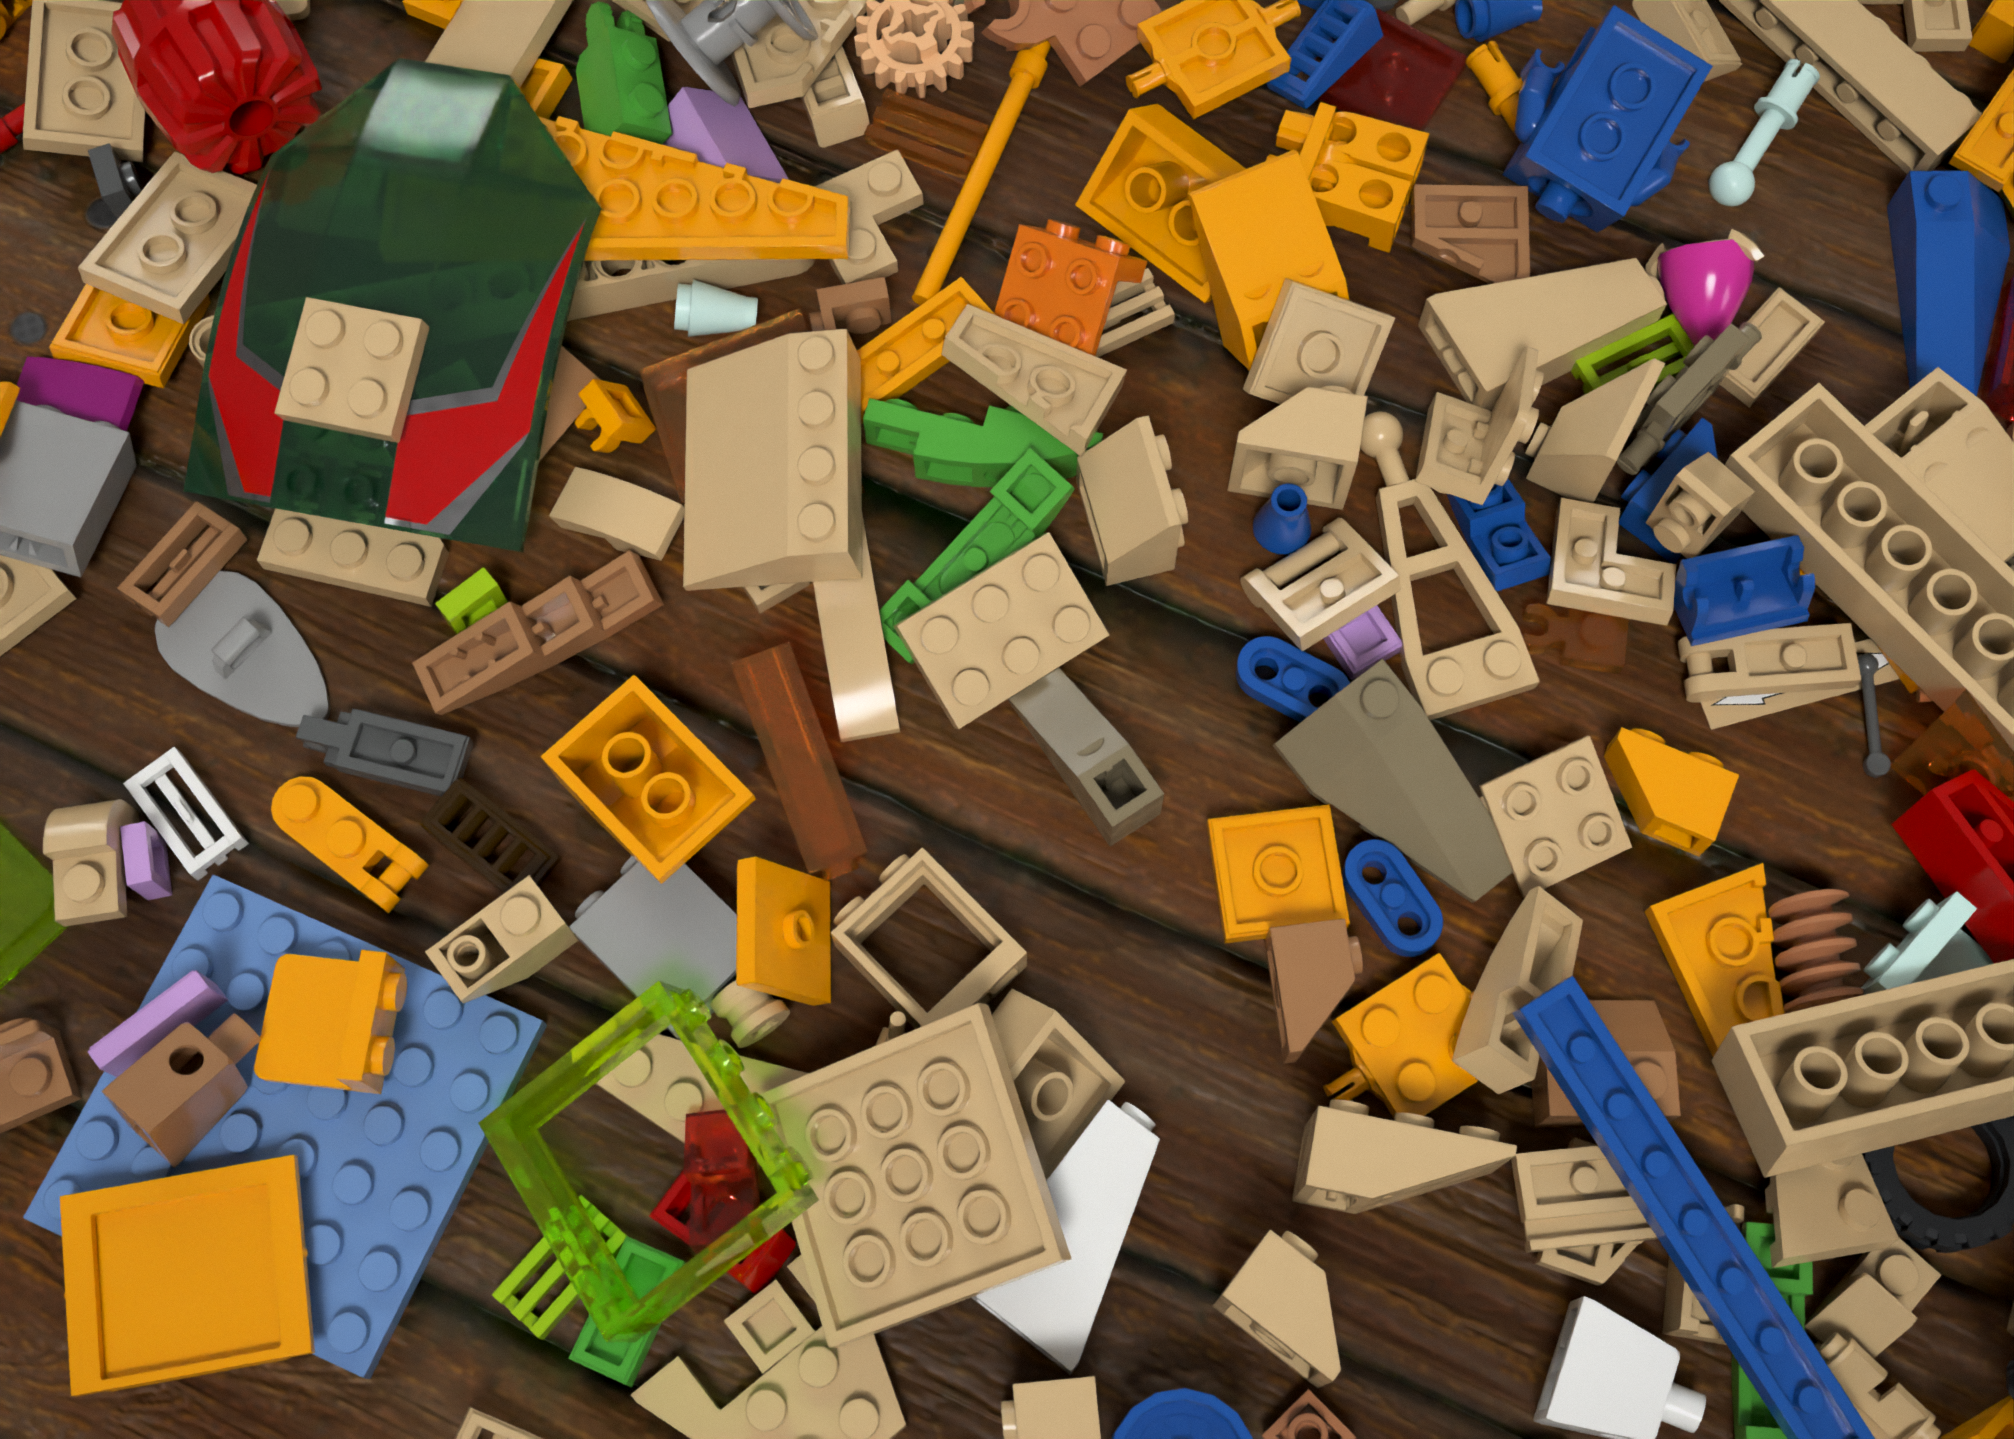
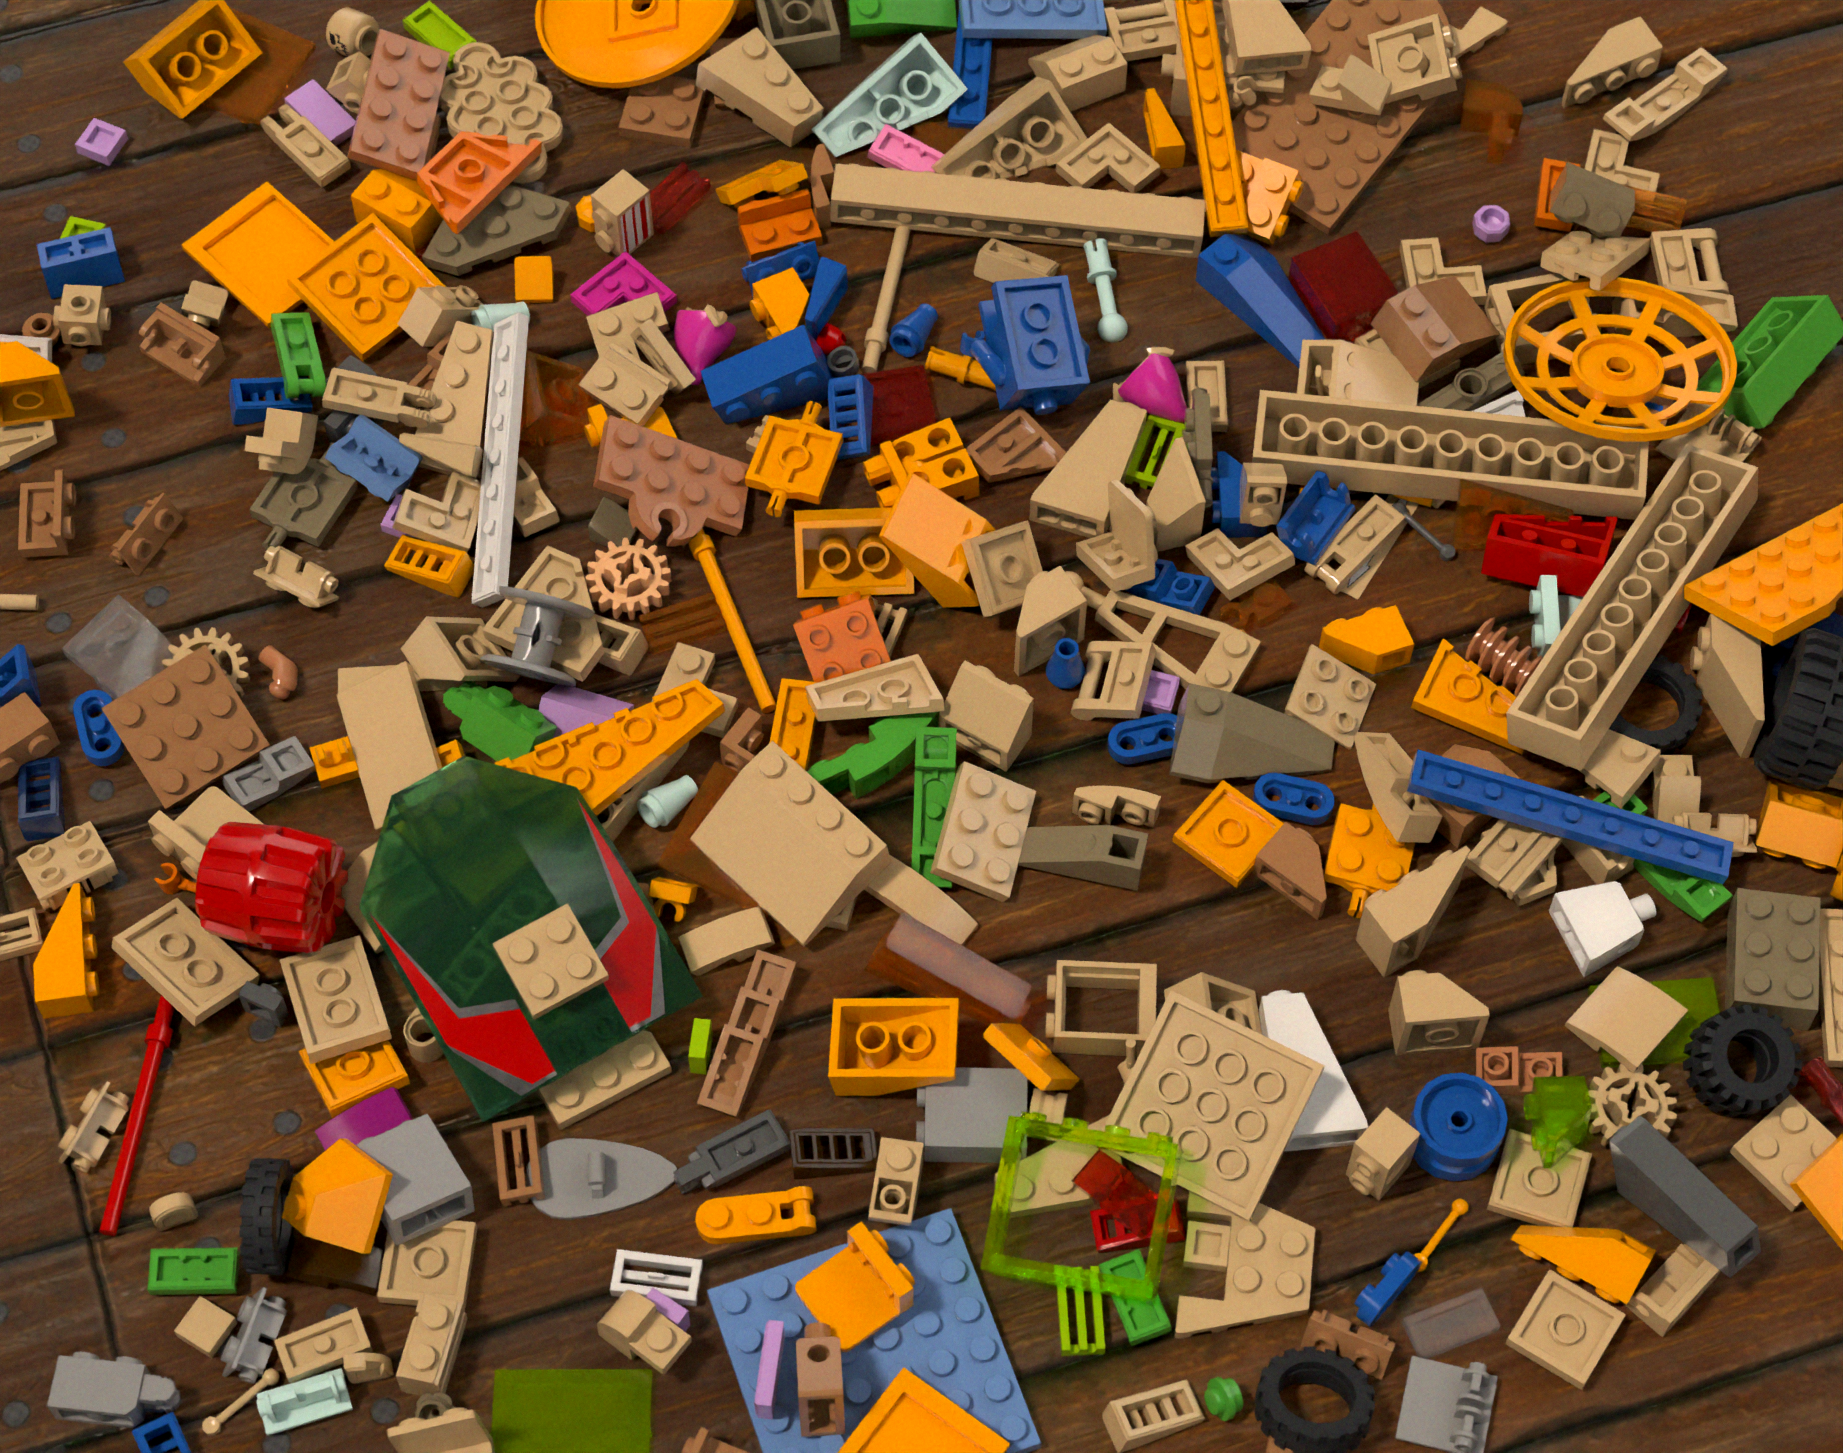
camera: 45 degrees left, 10 degrees down
(1170, 716) = (1101, 804): none -> tan slope

